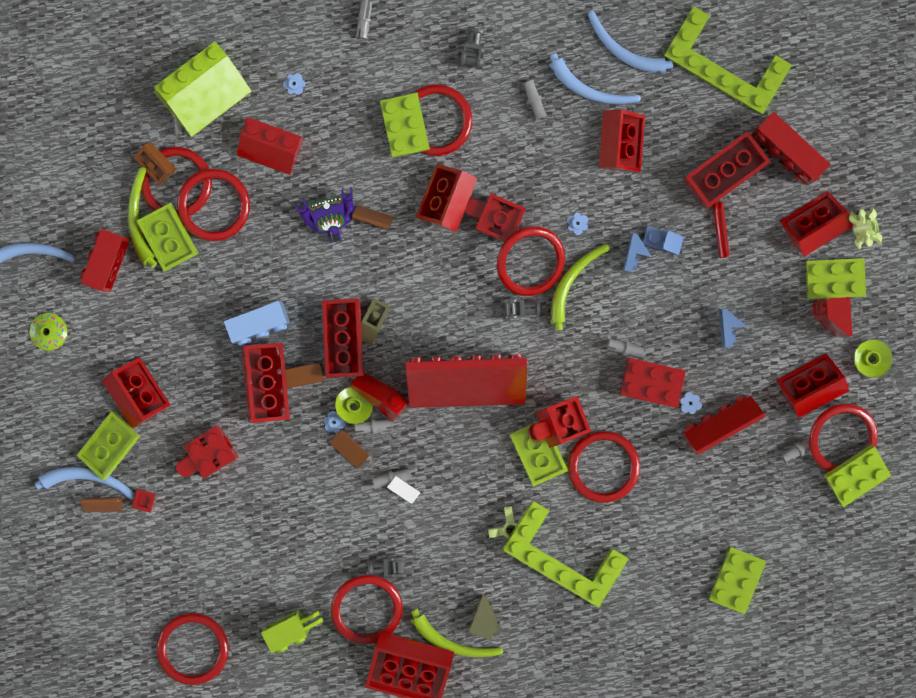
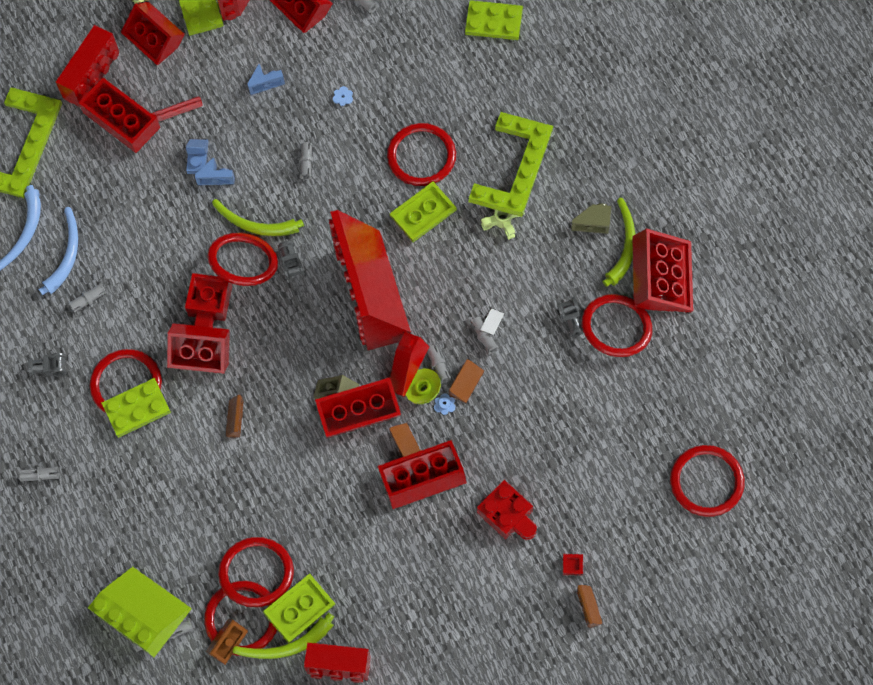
camera: 100 degrees left, 20 degrees down
(69, 473) = (566, 646): light blue animal -> none
(108, 445) = (527, 612): lime plate -> none
(135, 392) = (466, 600): red slope -> none
(257, 323) = (364, 494): light blue brick -> none
(269, 145) = (183, 532): red slope -> none
(288, 84) = (117, 532): light blue plant -> none
(289, 630) = (658, 387): lime brick -> none
(328, 215) = (240, 455): dark purple torso -> none
(560, 423) = (388, 194): red brick -> none
(577, 229) = (198, 237): light blue plant -> none
(622, 140) = (110, 212): red slope -> none
(652, 382) = (331, 130): red brick -> none
(722, 424) = (354, 61): red slope -> none

